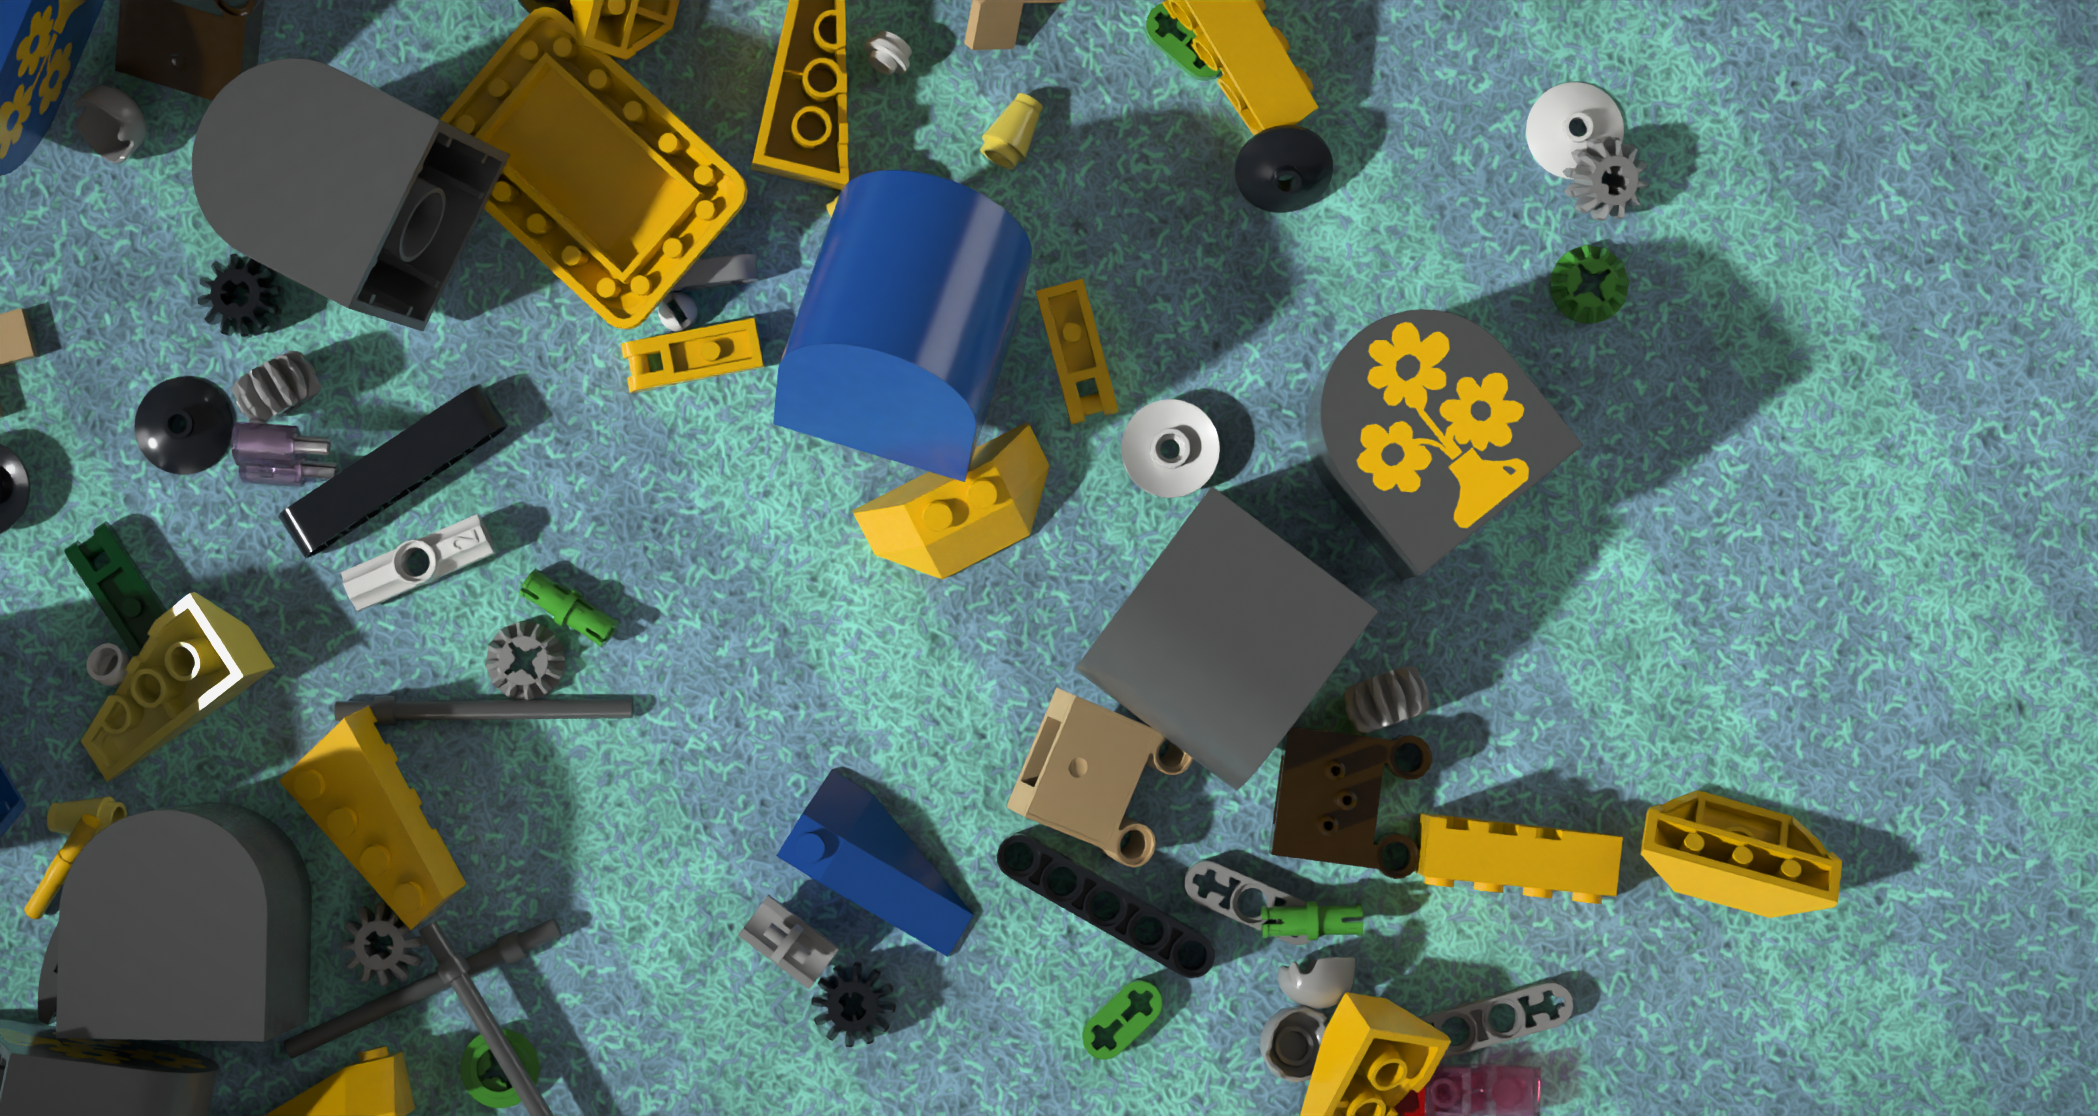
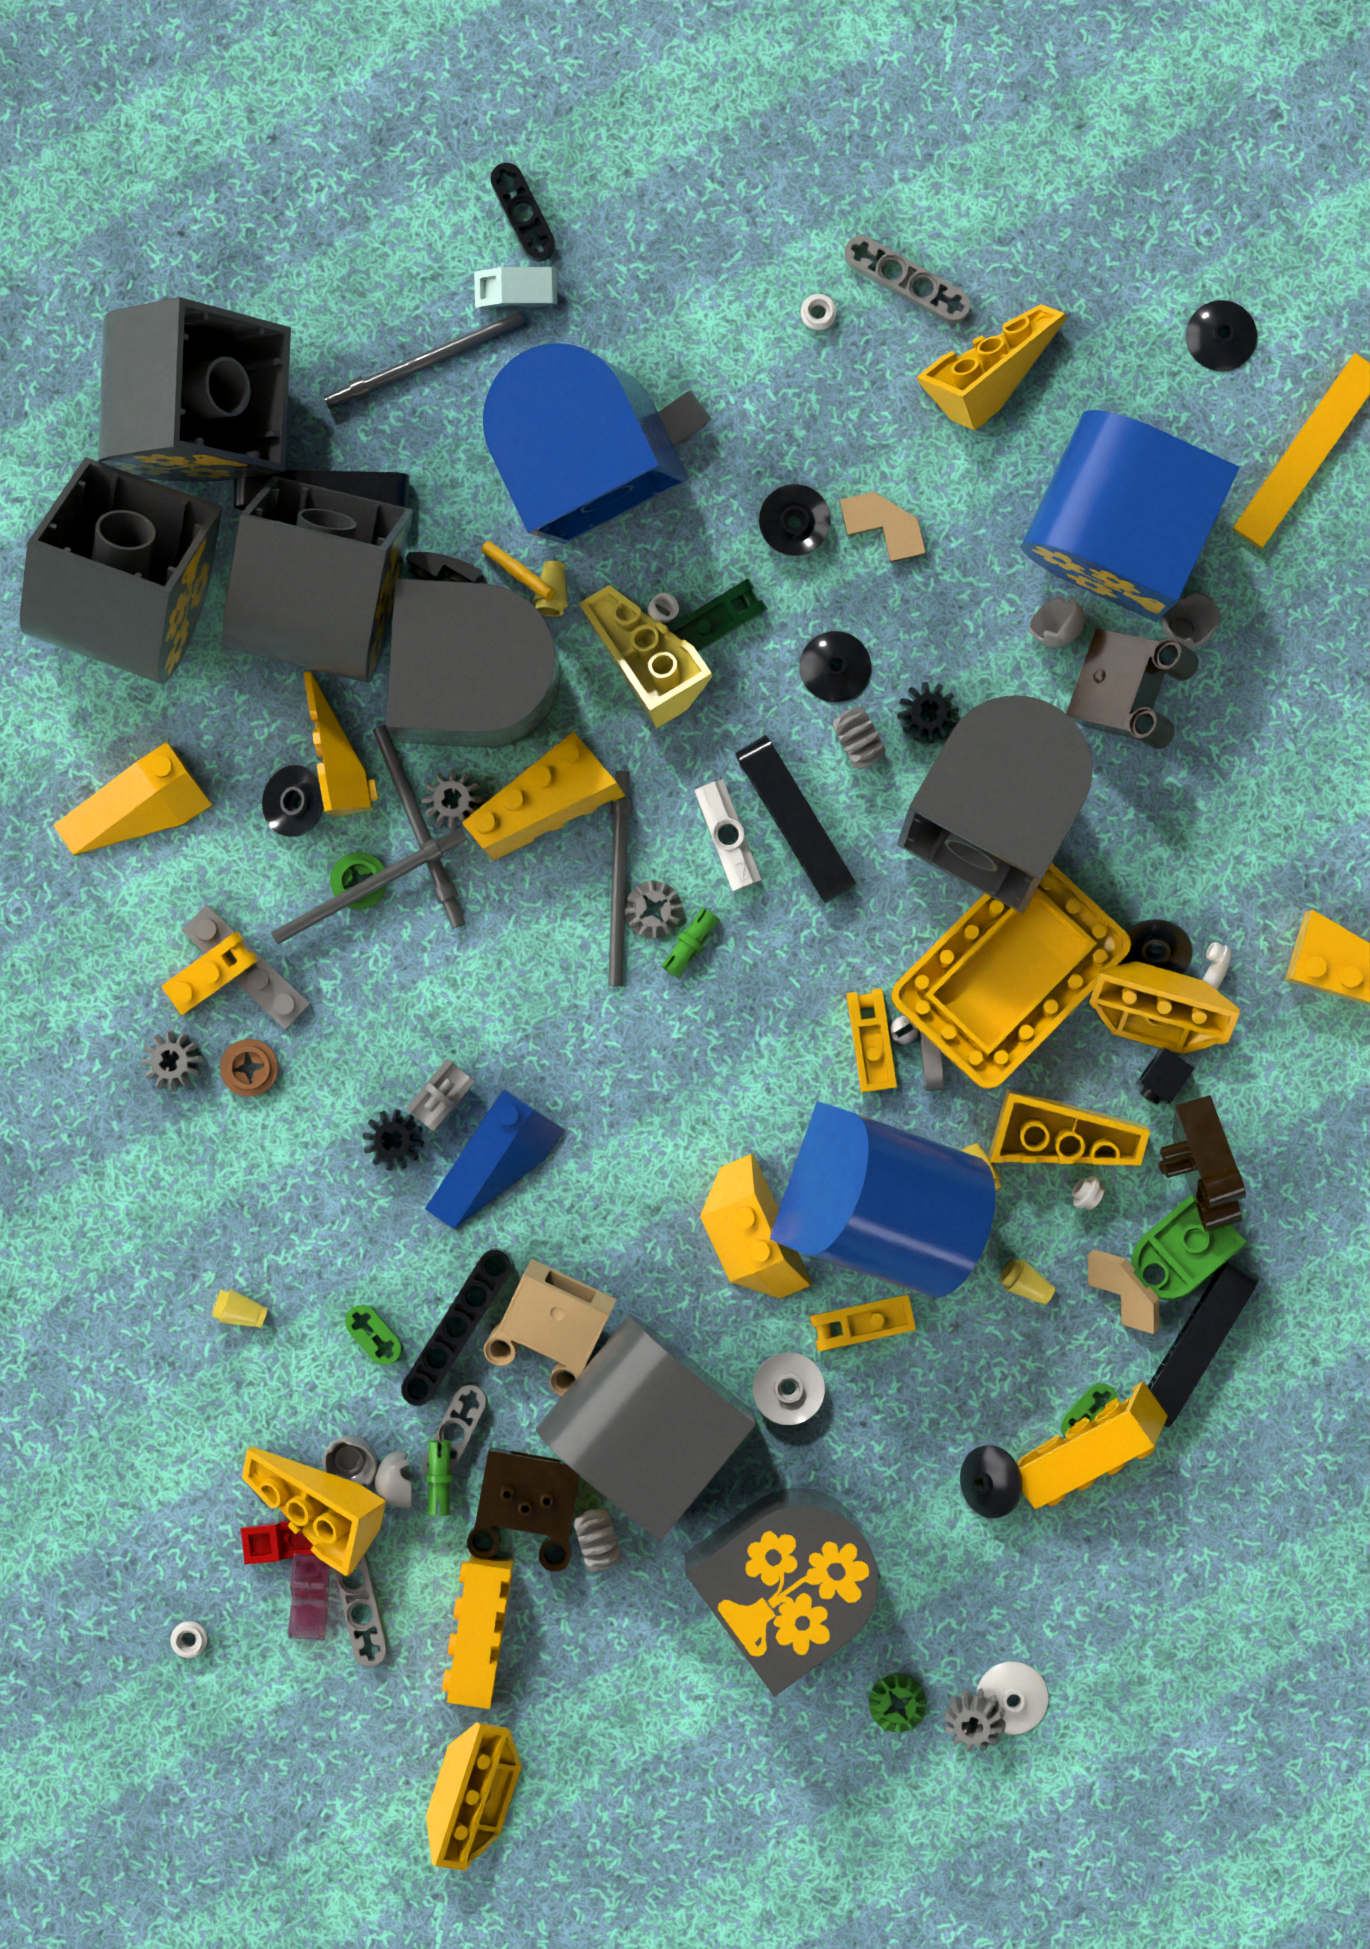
camera: 90 degrees right, 0 degrees up
(278, 454) = (810, 736): clear purple piece -> none

